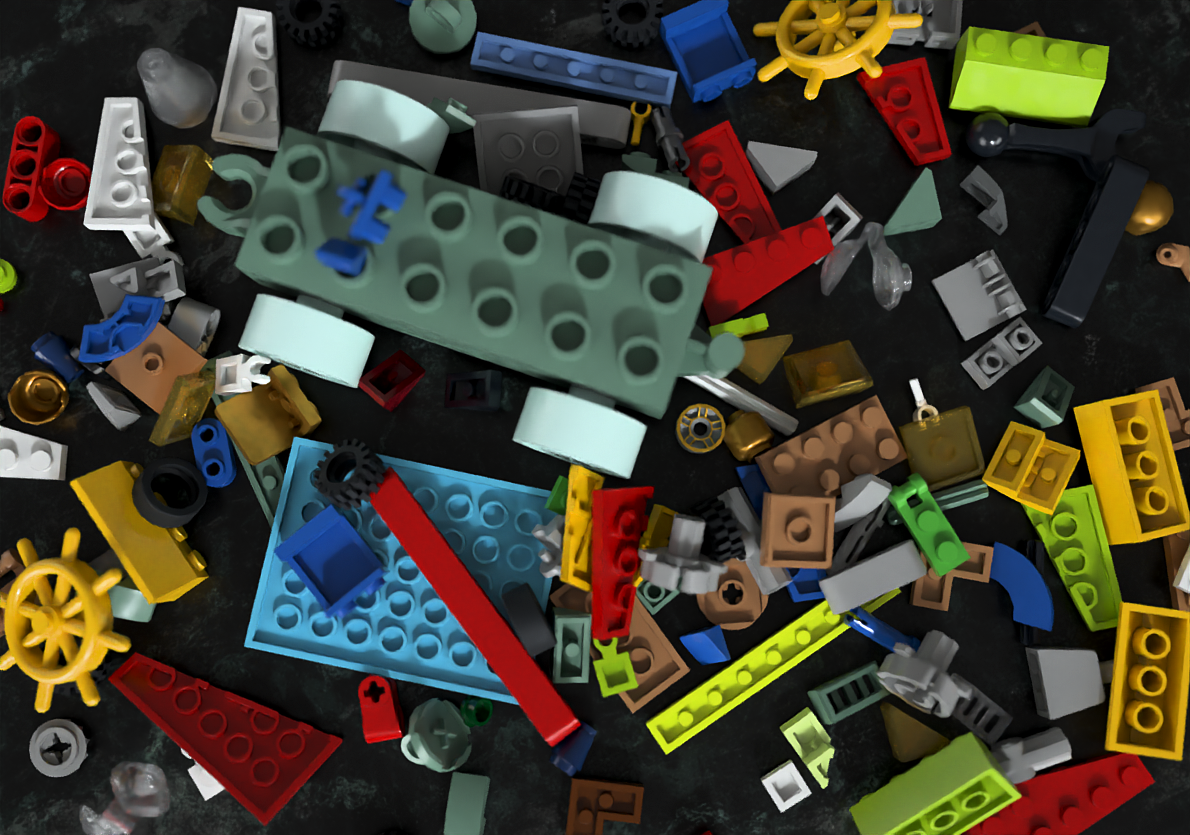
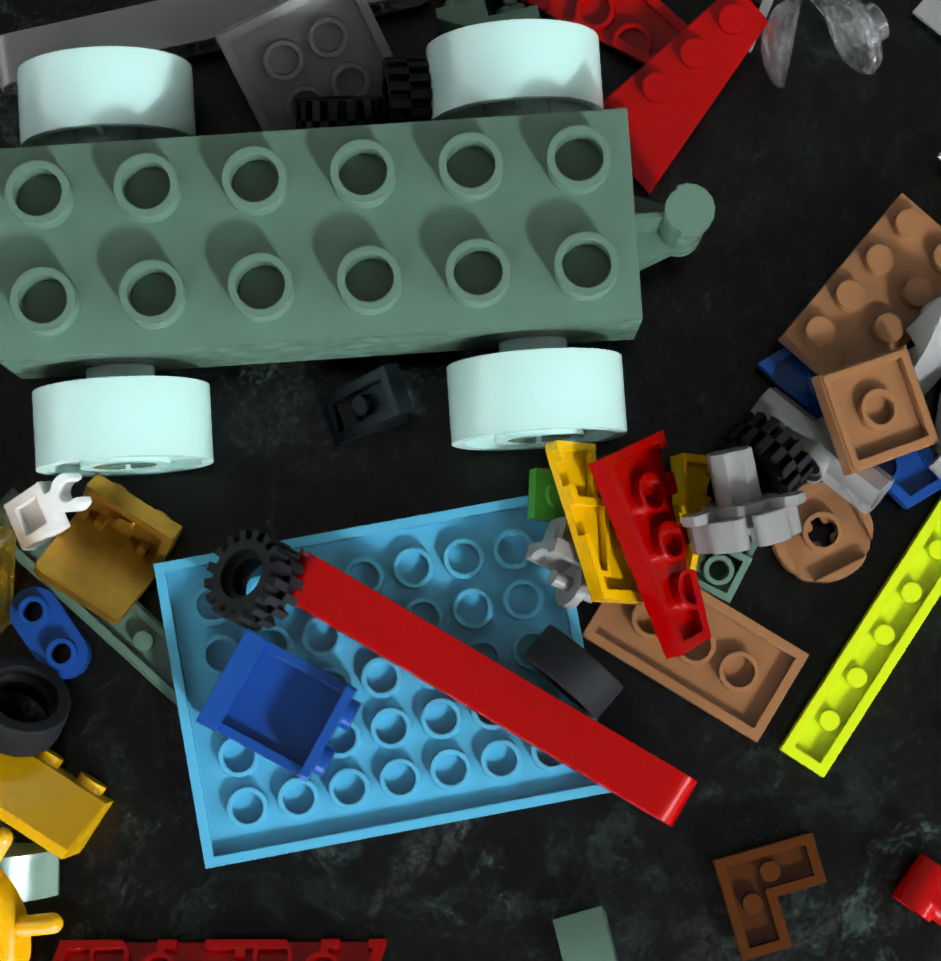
camera: 25 degrees left, 0 degrees up
(341, 255) = (140, 287): blue slope -> none
(381, 192) = (156, 184): blue hips -> none
(381, 714) = (427, 882): red piece -> none
(392, 380) = (251, 436): dark red slope -> none
(437, 736) = (513, 876): sand green tile -> none
(453, 114) = (192, 45): sand green slope -> none
(476, 710) = (548, 826): dark green plate -> none
(571, 655) = (645, 702): sand green slope -> none
(573, 749) = (698, 824): dark blue cone -> none
(614, 669) = (710, 693): lime plate -> none
(702, 415) = (682, 313): wheel -> none
(706, 645) = (817, 613): blue slope -> none
(740, 326) = (692, 172): lime plate -> none
(748, 402) = (736, 273): white axle -> none
(748, 435) = (755, 315): pearl gold head -> none
(762, 356) = (735, 202): clear yellow slope -> none
(826, 374) = (824, 192): clear yellow slope -> none

